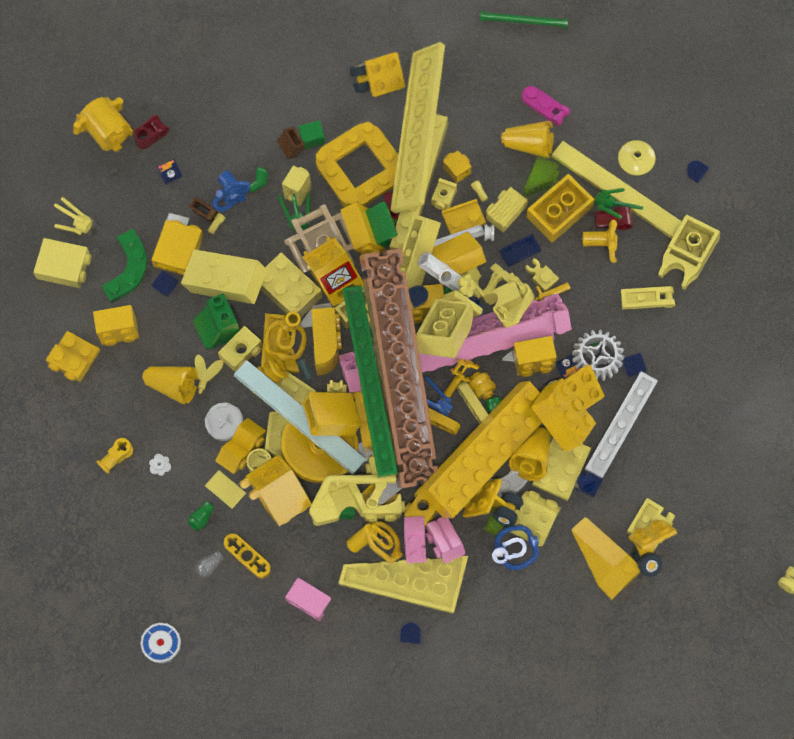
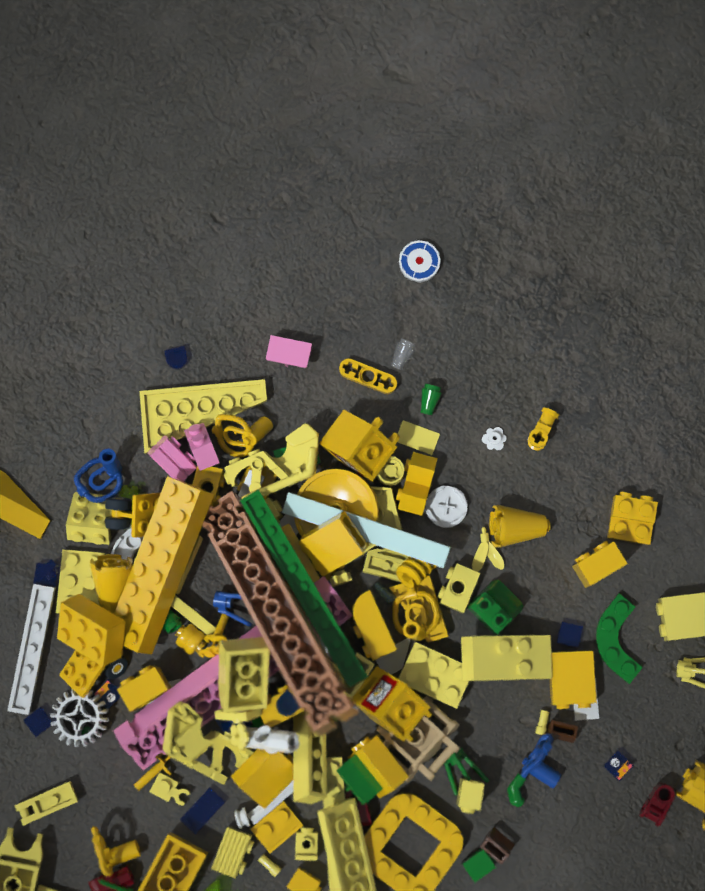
camera: 160 degrees right, 10 degrees up
(443, 422) = (217, 584): yellow beam -> none

